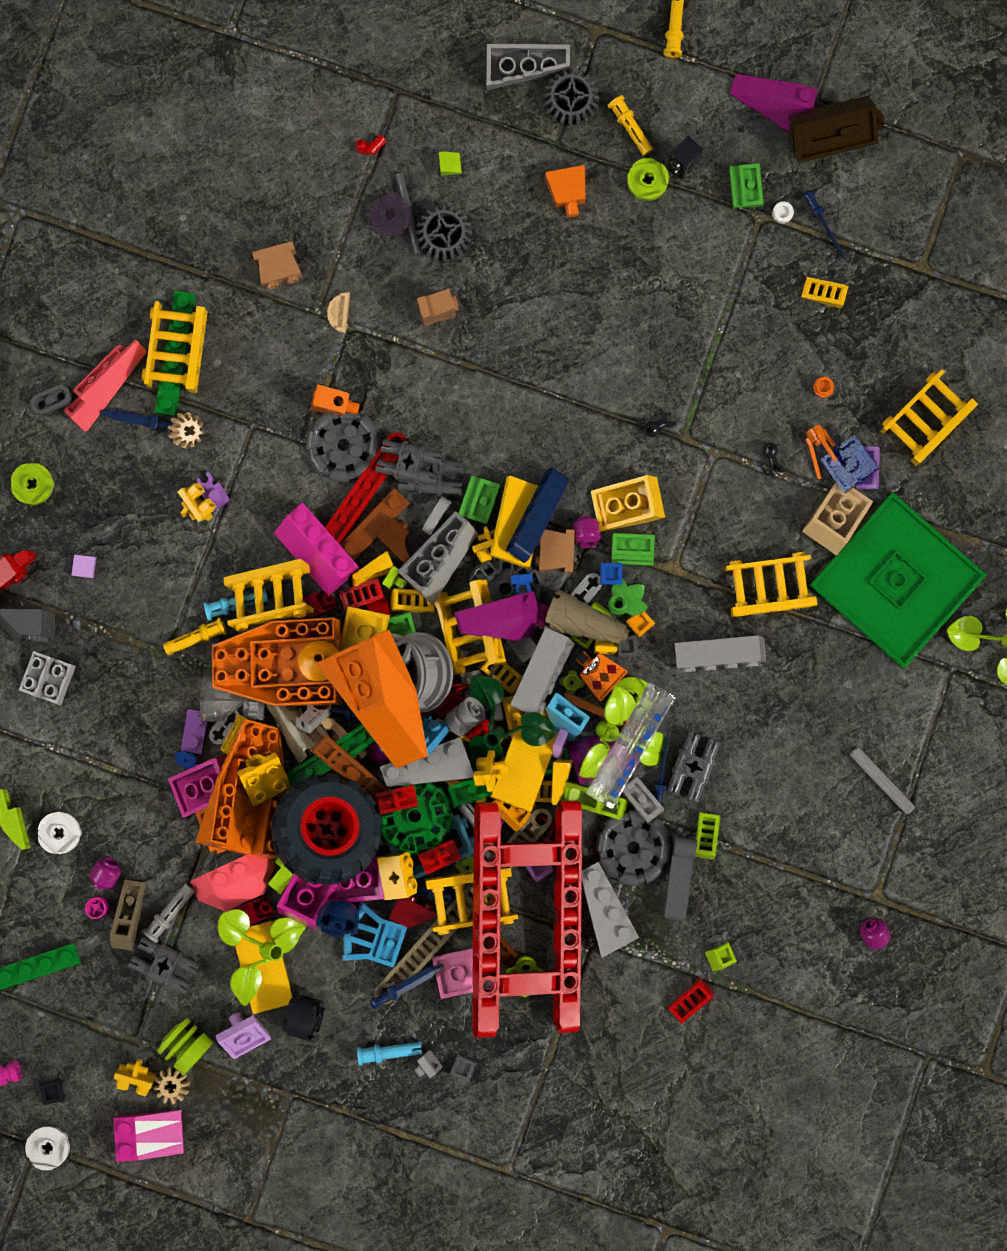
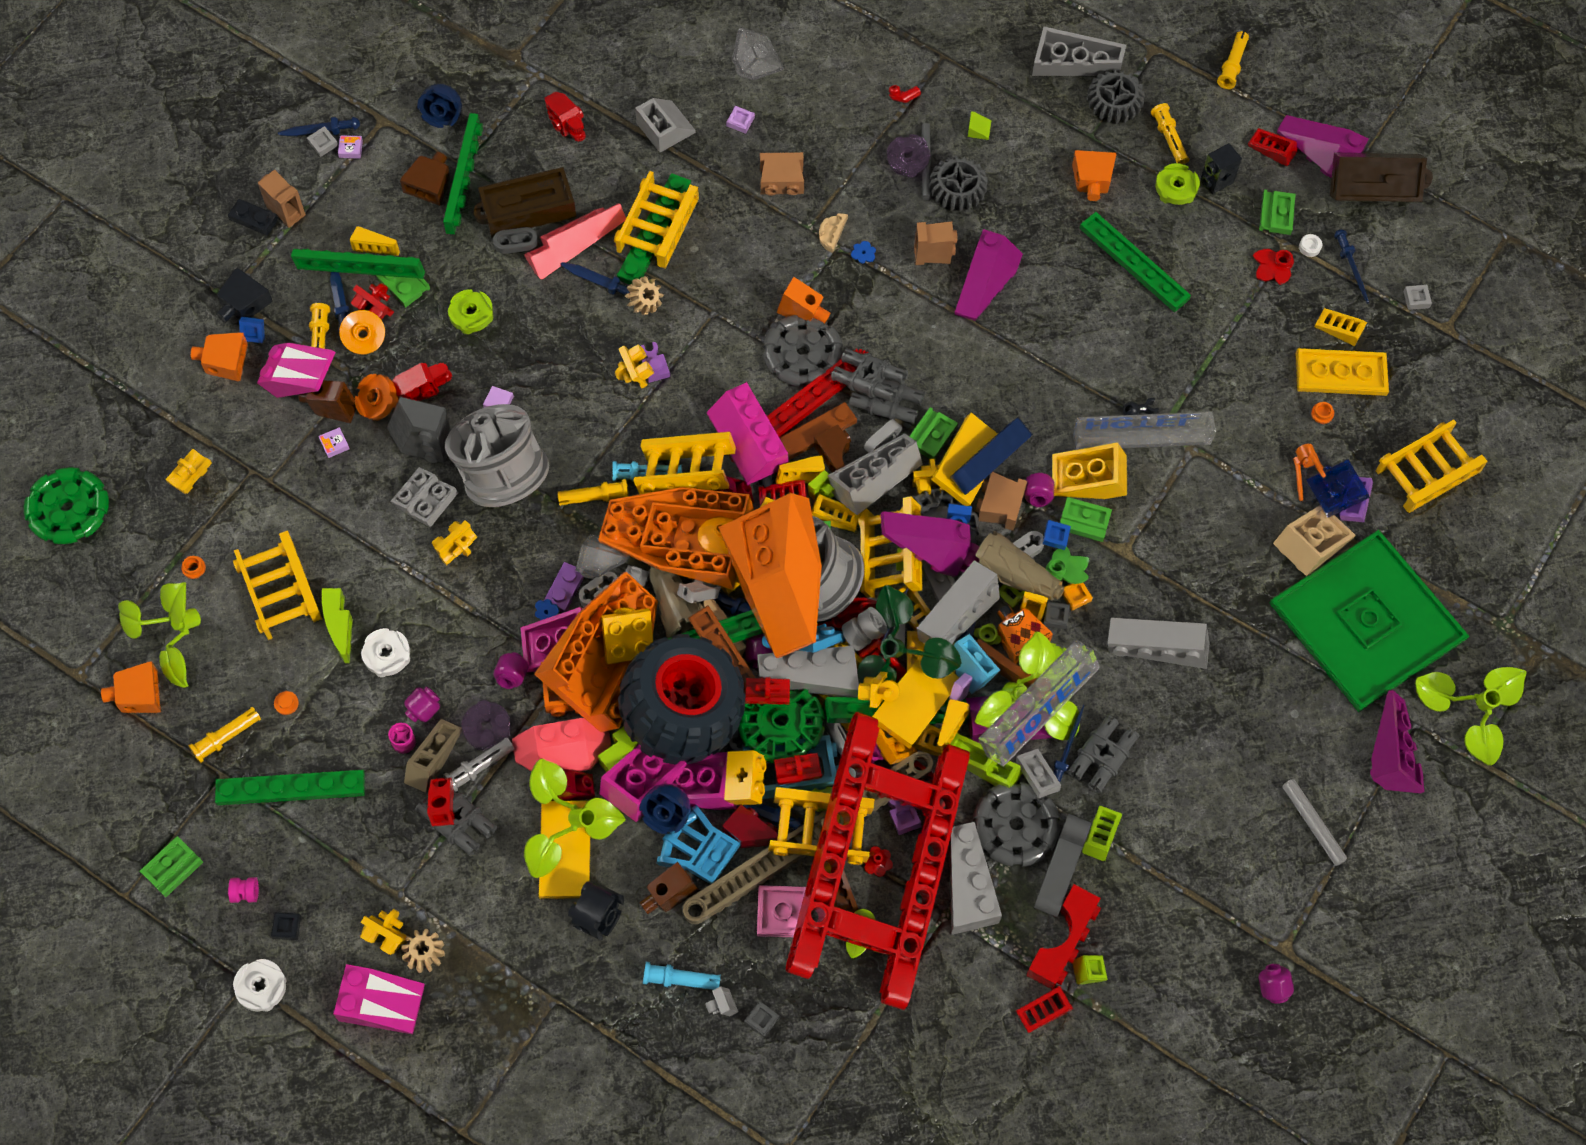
camera: 10 degrees right, 20 degrees down
(49, 360) = (526, 202): none -> dark brown piece
(59, 256) = (565, 116): none -> red hinge
(89, 717) = (455, 543): none -> yellow hips
(100, 635) = (497, 455): none -> light grey wheel
(148, 960) = (441, 802): none -> red leg
(153, 239) = (663, 123): none -> light grey slope
(160, 864) = (484, 712): none -> clear purple plate
(171, 823) = (510, 670): none -> magenta head
(185, 1046) = (452, 906): lime wheel -> none
(219, 140) = (755, 55): none -> clear slope
(223, 213) = (740, 119): none -> lavender tile
(243, 1035) = (521, 913): lavender tile -> none
(363, 979) = (678, 887): none -> reddish brown torso
(374, 322) = (863, 252): none -> blue plant
(393, 992) = (706, 907): dark blue sword -> none
(494, 318) = (990, 269): none -> magenta wedge
(528, 903) = (880, 866): none -> red plant
(624, 274) = (1135, 262): none -> green plate
(667, 451) = (1145, 430): none -> clear brick
(687, 964) = (1050, 962): none -> red arch
(742, 124) = (1283, 155): none -> red slope
(751, 246) = (1271, 266): none -> red plate
(762, 604) = (1215, 607): yellow fence -> none
(771, 455) = (1253, 463): black arm -> none
(834, 339) = (1342, 372): none -> yellow tile
(890, 244) = (1417, 297): none -> light grey plate
(939, 706) = (1393, 753): none -> magenta wedge

